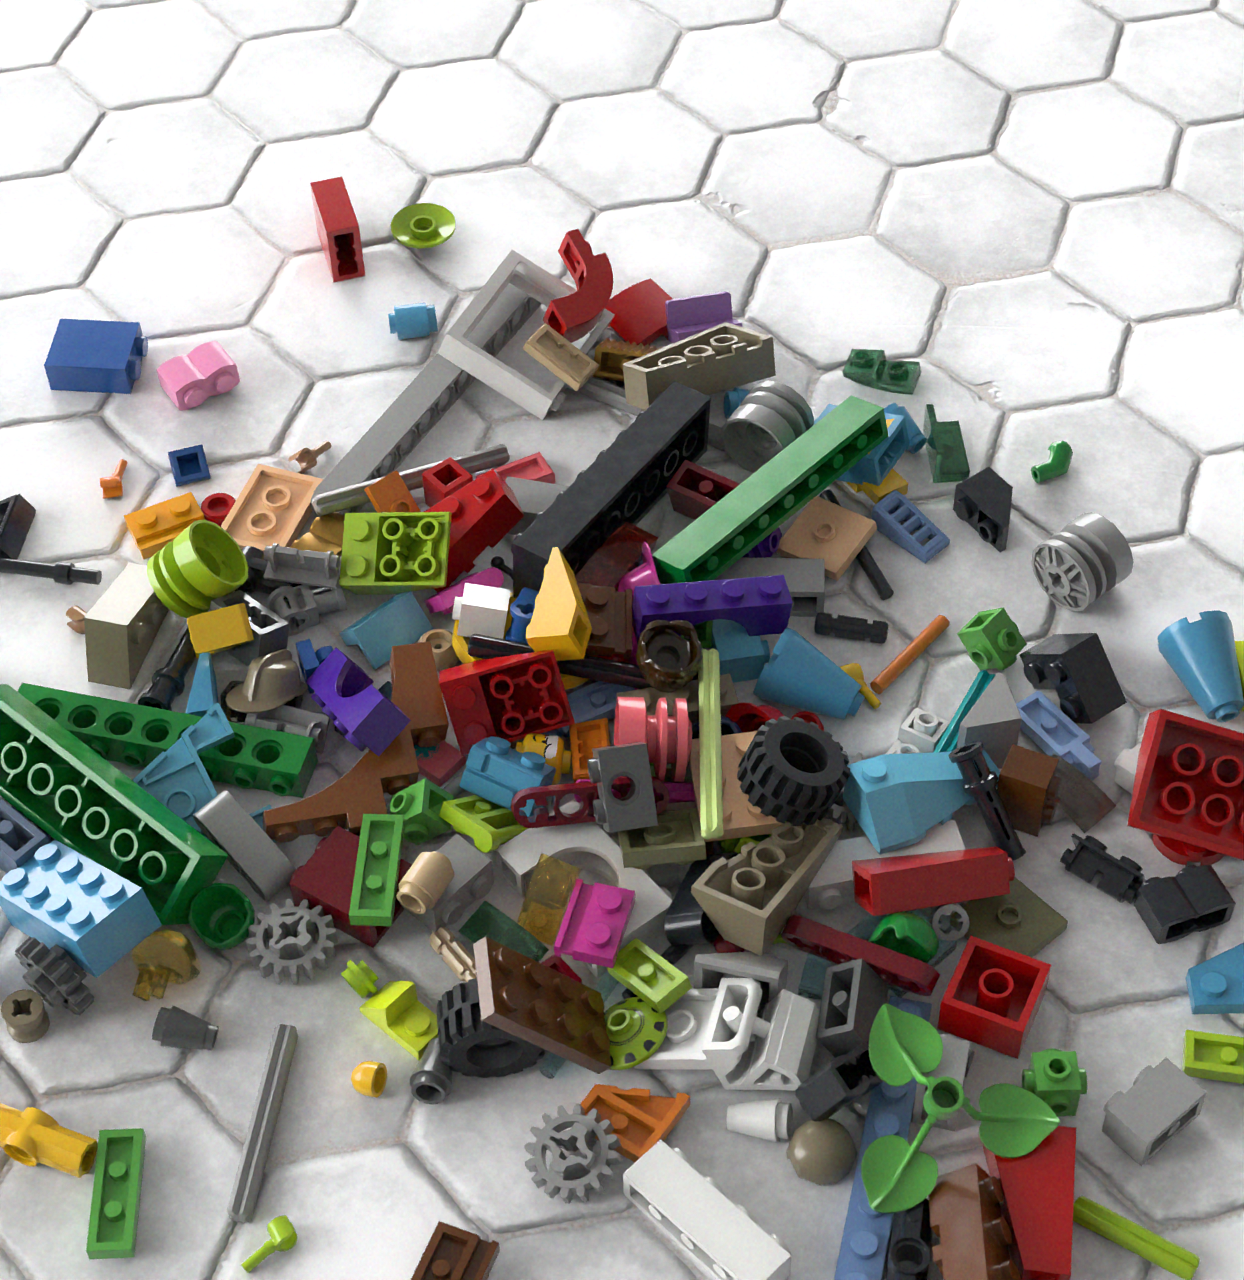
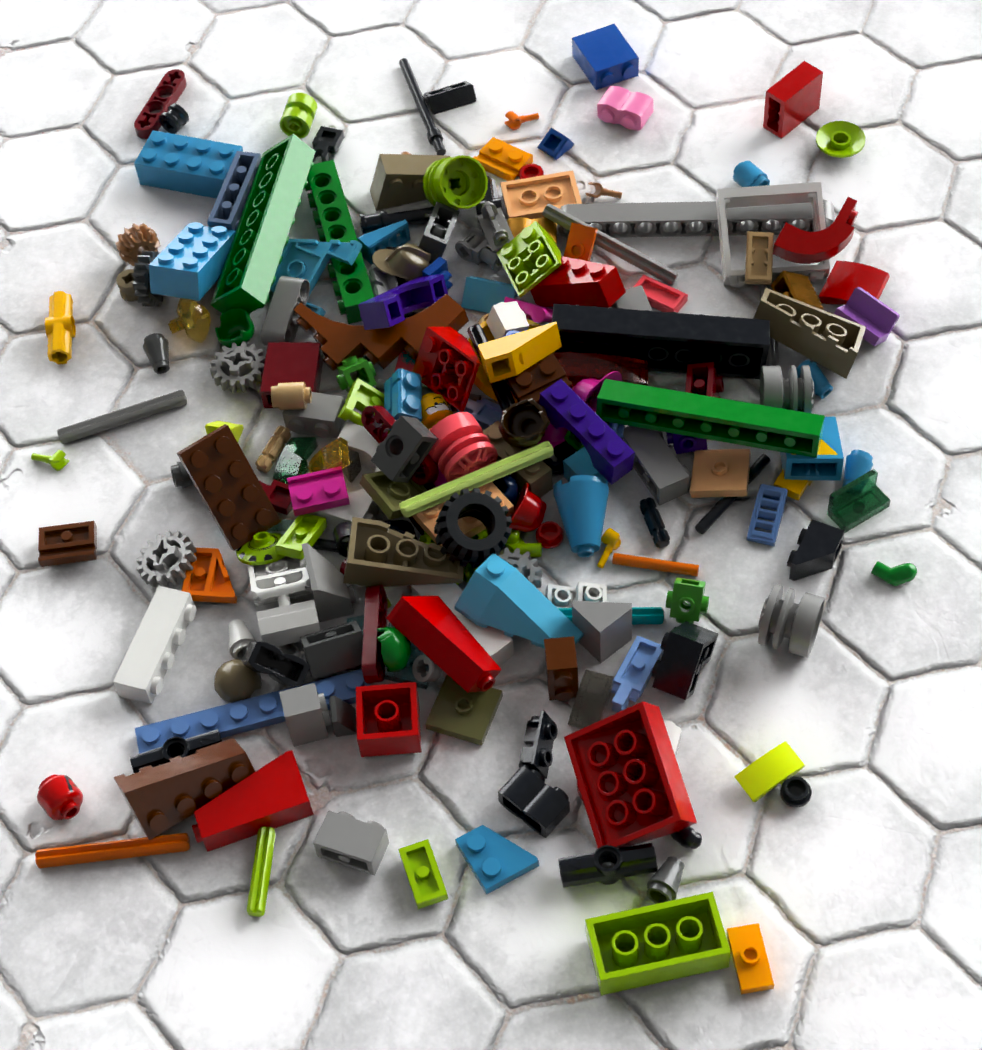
camera: 65 degrees right, 5 degrees up
(116, 1194) = (46, 379): bright green plate -> none
(219, 629) = (414, 214): yellow slope -> none
(360, 978) = (232, 409): lime plate -> none
(369, 1078) = (176, 447): yellow hinge -> none
(377, 870) = (297, 369): bright green plate -> none
(444, 480) = (616, 256): red brick -> none
(876, 372) = (907, 438): clear green slope -> none
(908, 1047) = (222, 715): bright green plant -> none
(981, 785) = (535, 635): black pin -> none
(1056, 1080) = (344, 779): bright green brick -> none
(1206, 662) = (751, 734): dark azure cone -> none

